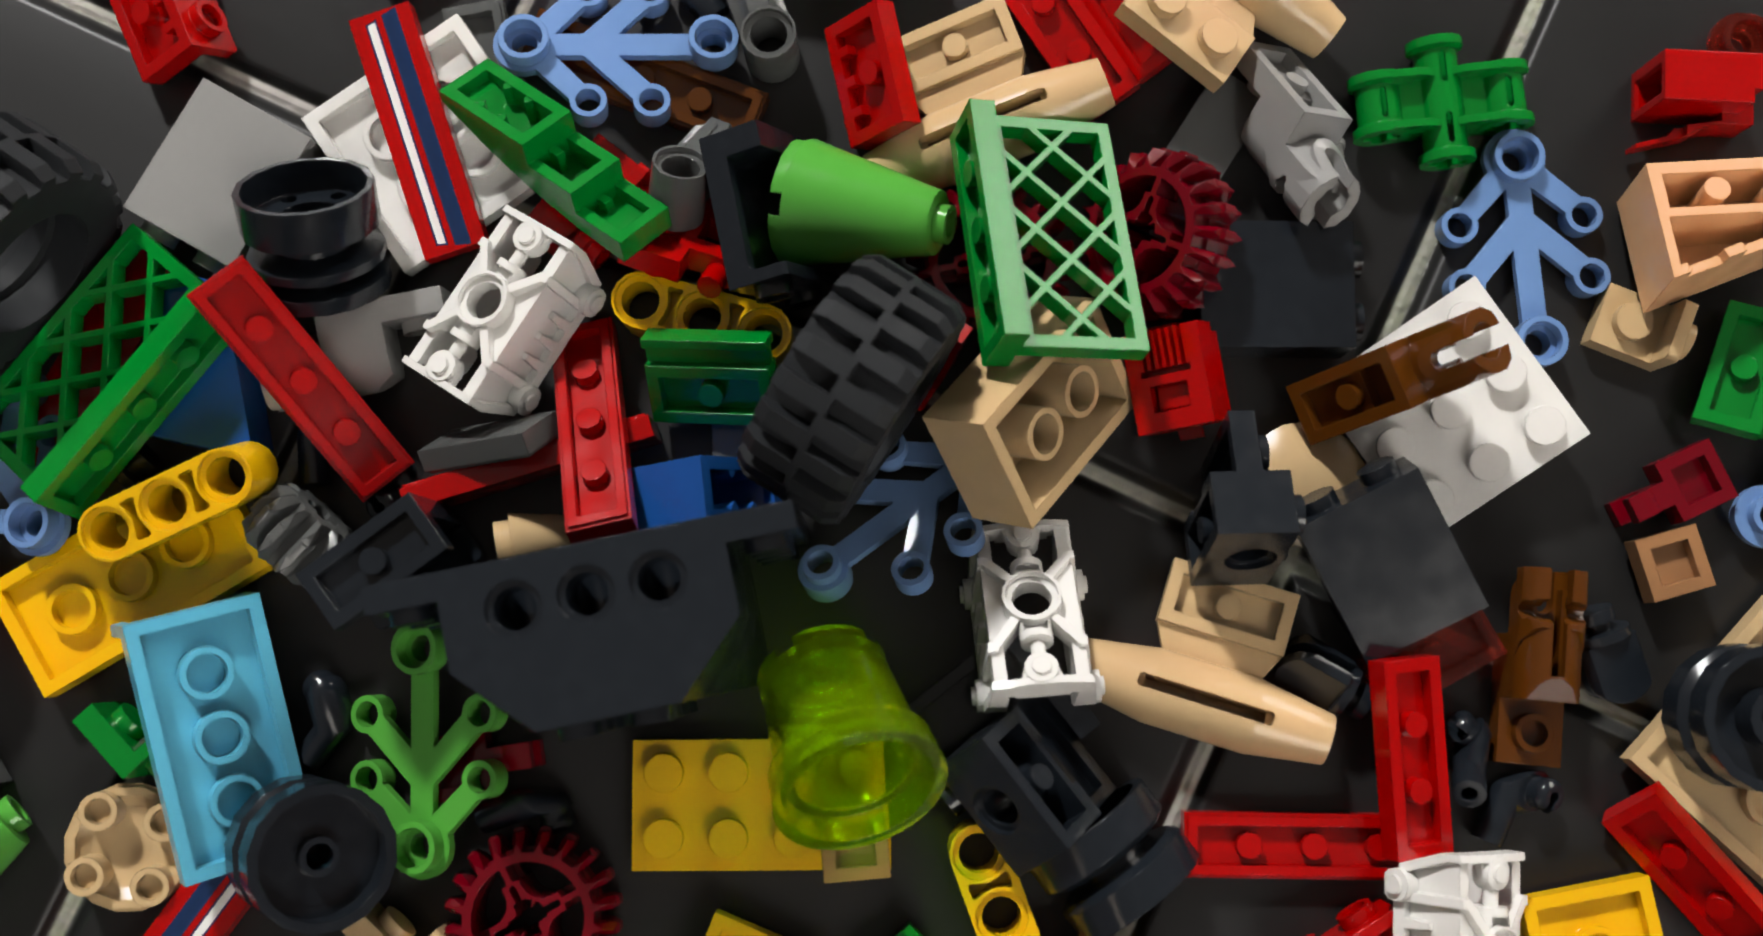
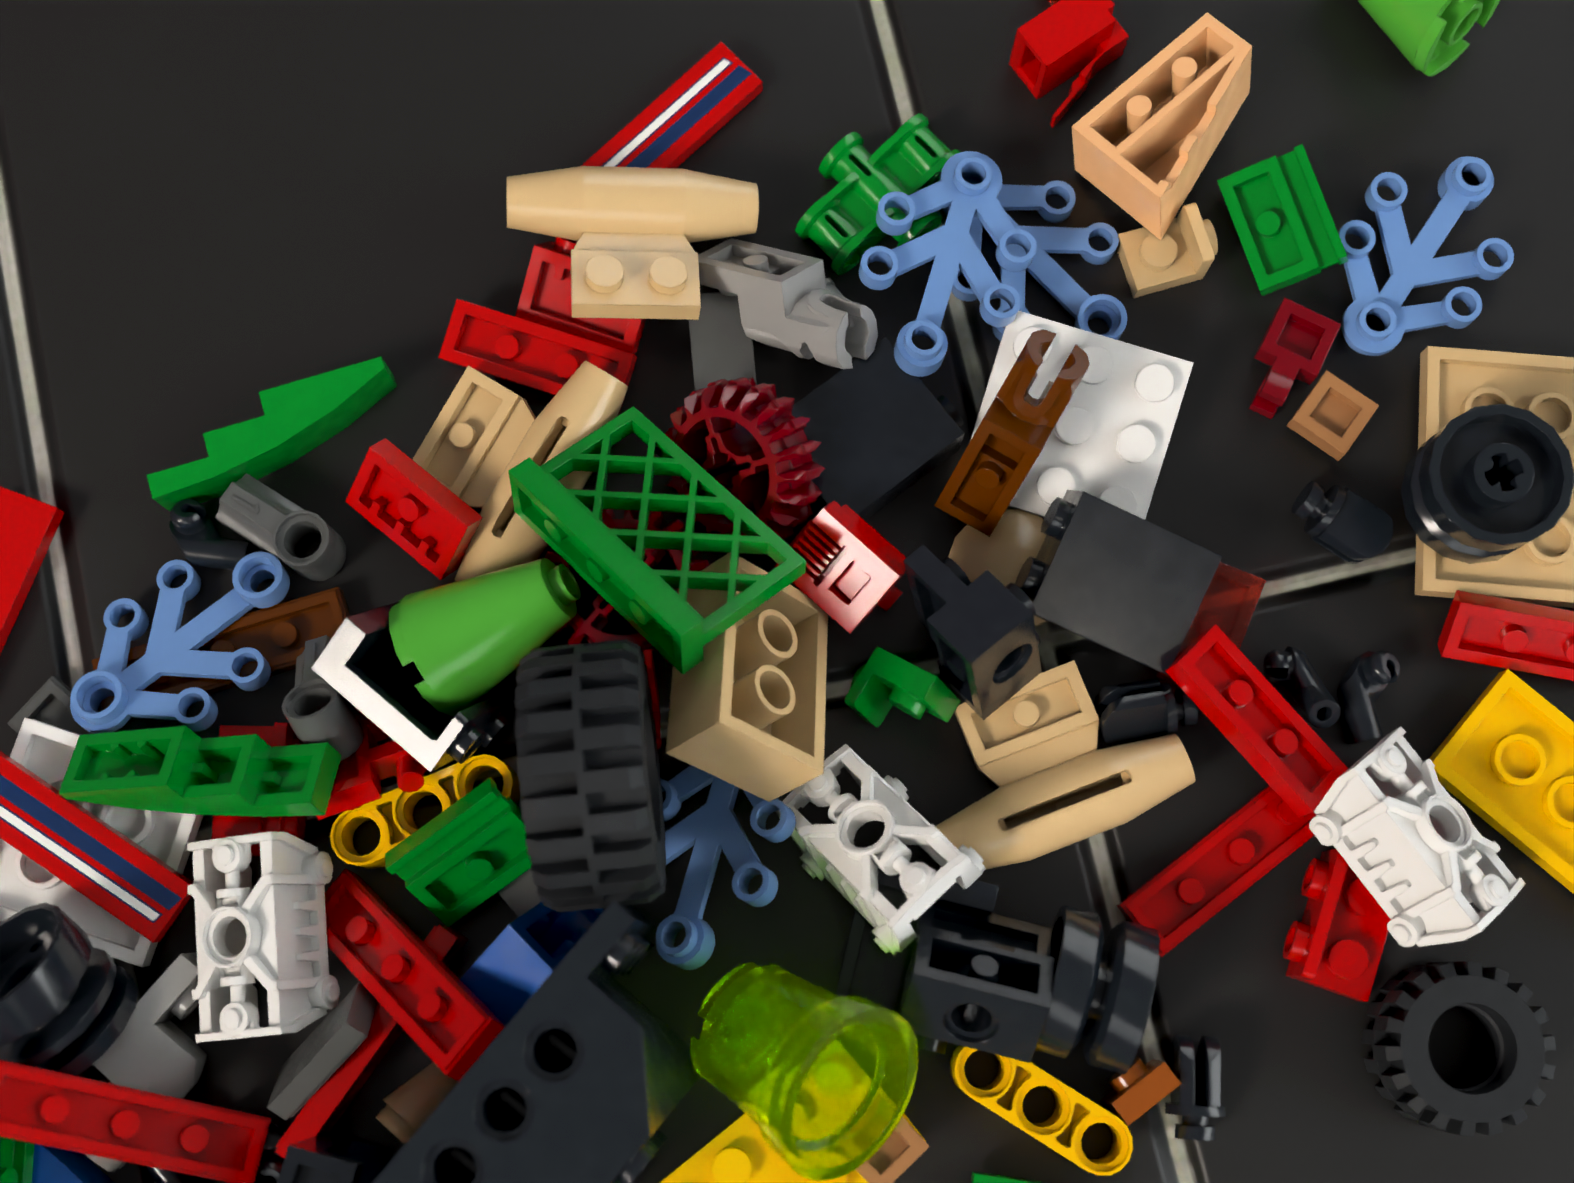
camera: 40 degrees left, 5 degrees down
(1143, 500) = (894, 681): none -> green bracket
(1463, 189) = (950, 248): none -> medium blue plant
(1539, 666) = (1298, 573): reddish brown plate -> none

